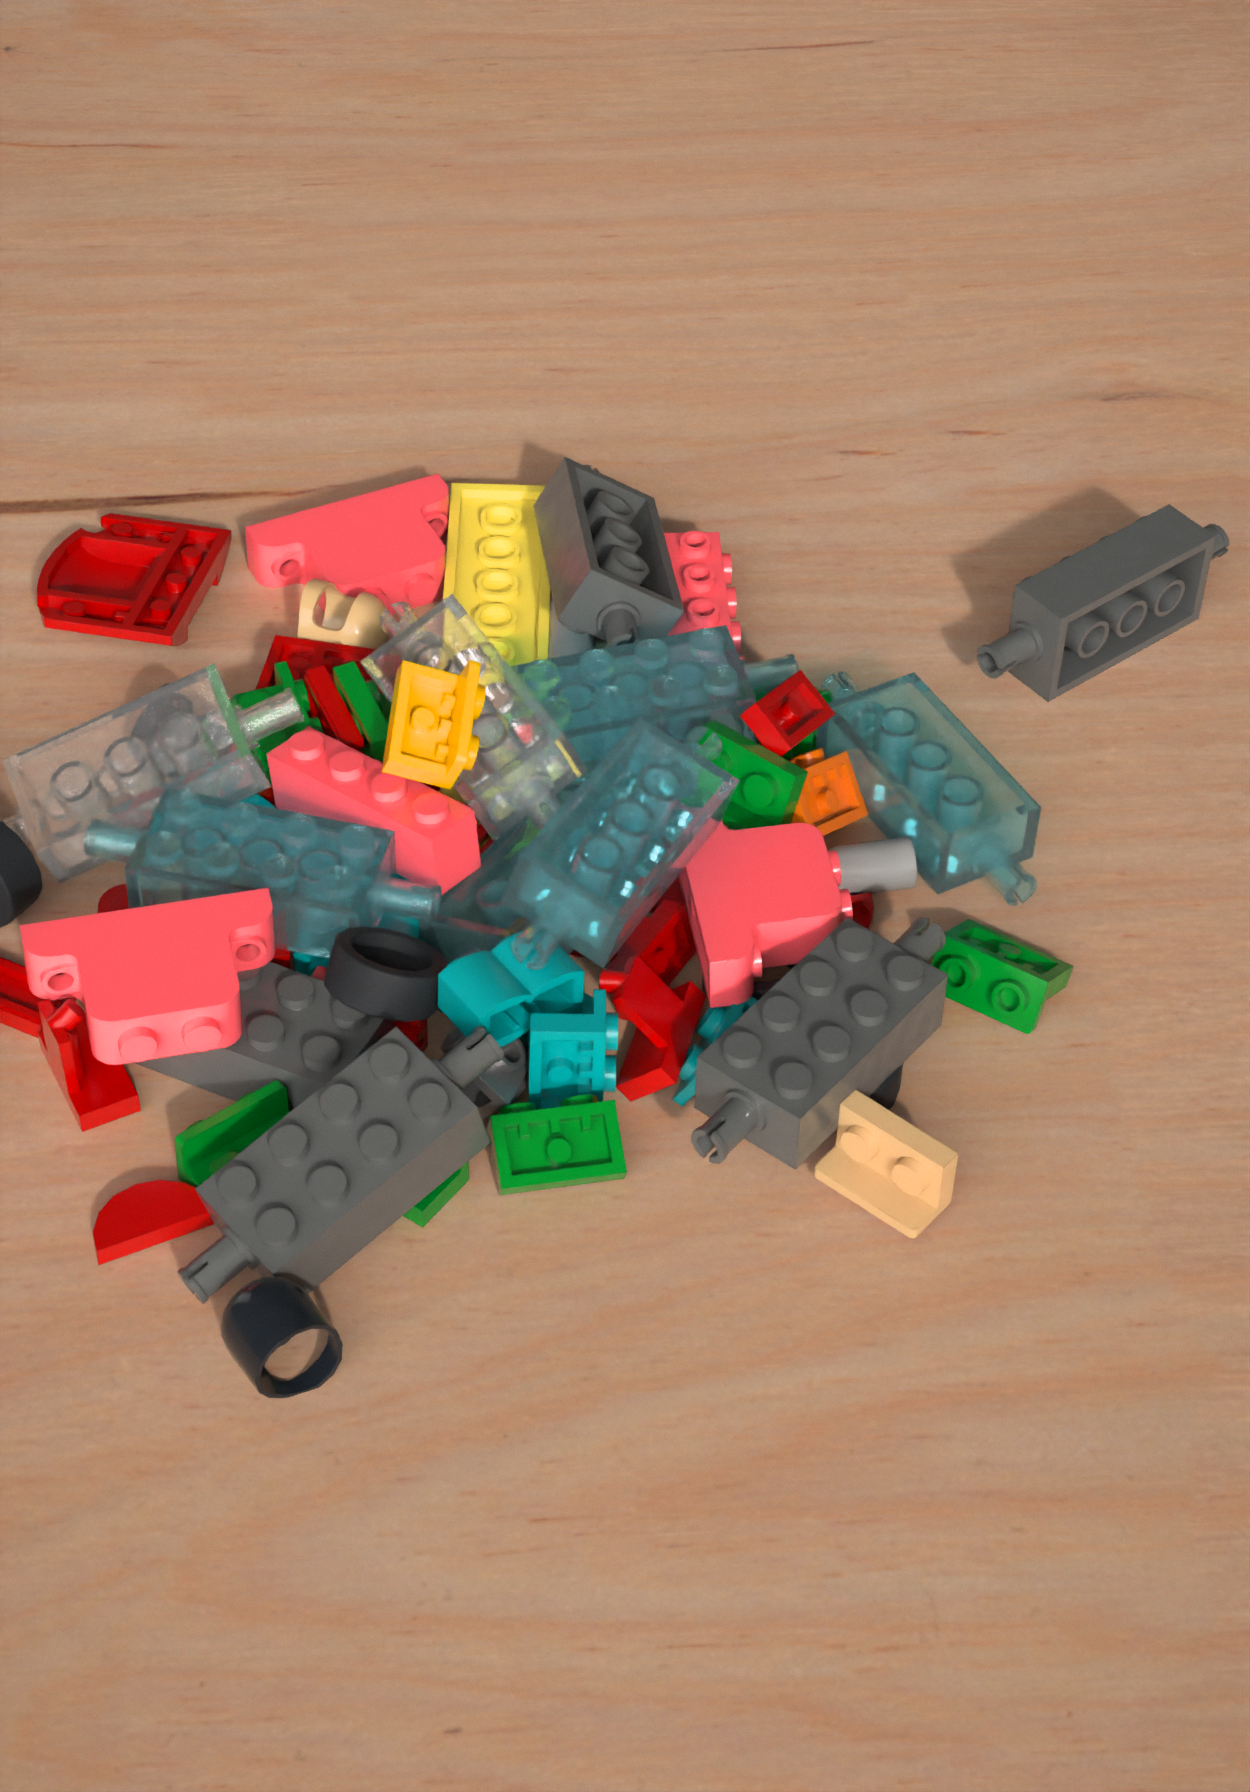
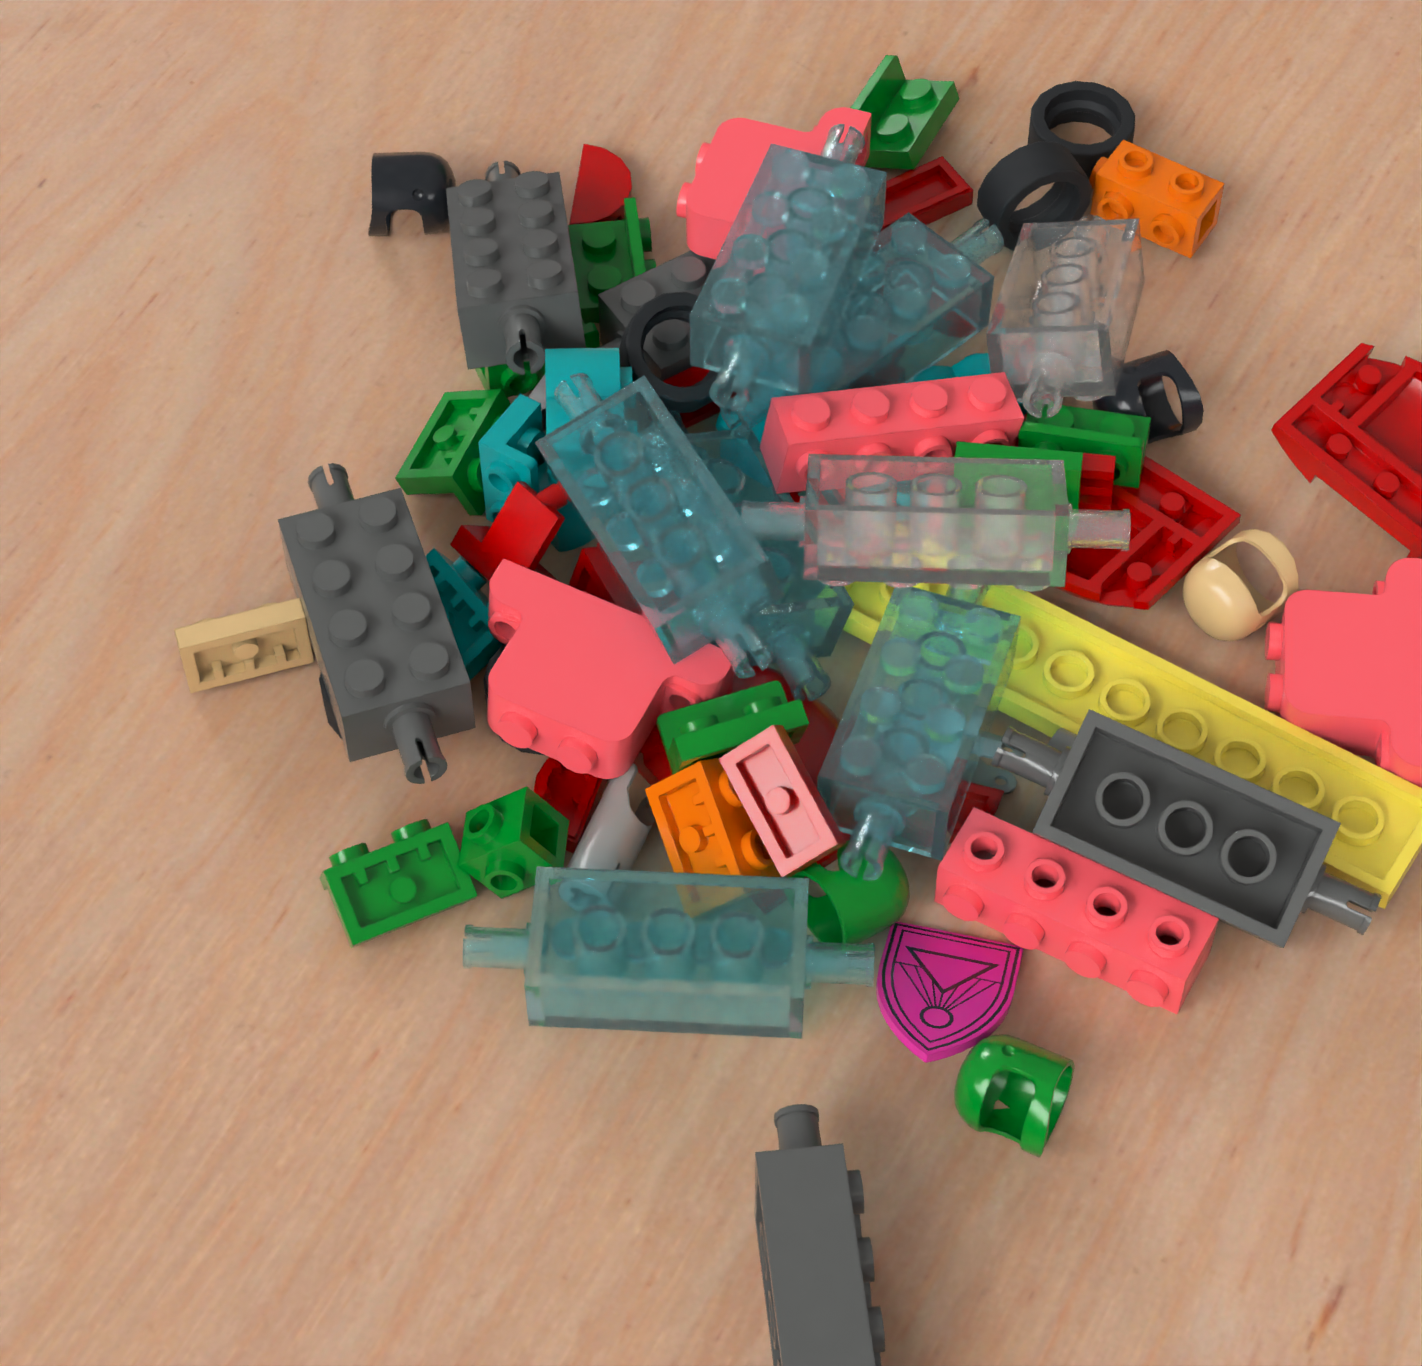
camera: 125 degrees right, 10 degrees up
(292, 860) = (788, 269): none -> clear light blue brick
(433, 723) = (899, 432): yellow bracket -> none
(828, 639) = (944, 988): none -> dark pink shield
(856, 596) = (1021, 1077): none -> green helmet
(917, 892) = (510, 839): none -> green brick

